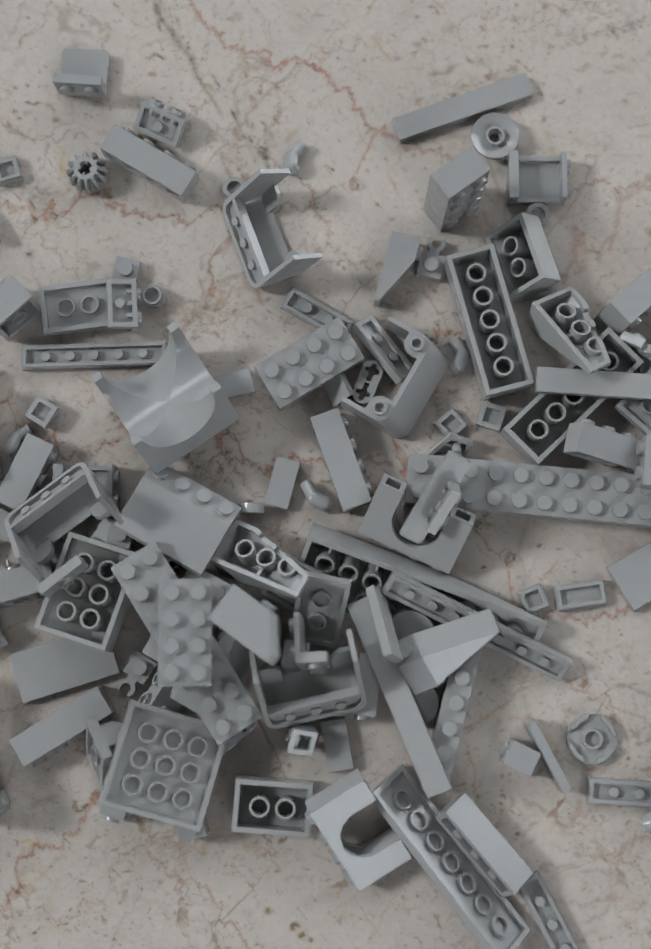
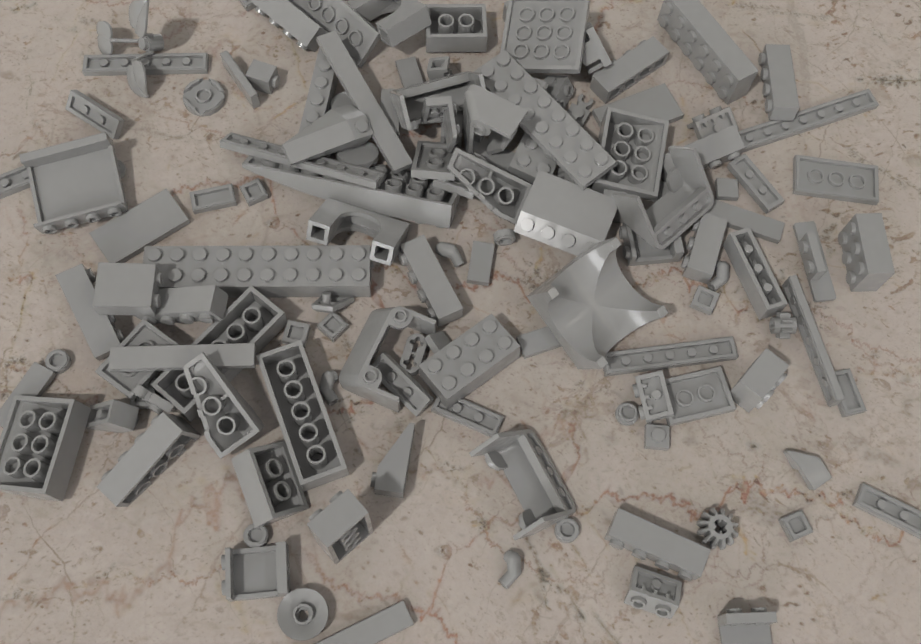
camera: 165 degrees right, 15 degrees down
(62, 577) = (653, 153): light grey plate -> none
(184, 632) = (548, 121): light grey brick -> none
(384, 624) = (380, 142): light grey tile -> none
(431, 263) = (360, 475): light grey plate -> none
(437, 499) = (340, 239): light grey bracket -> none

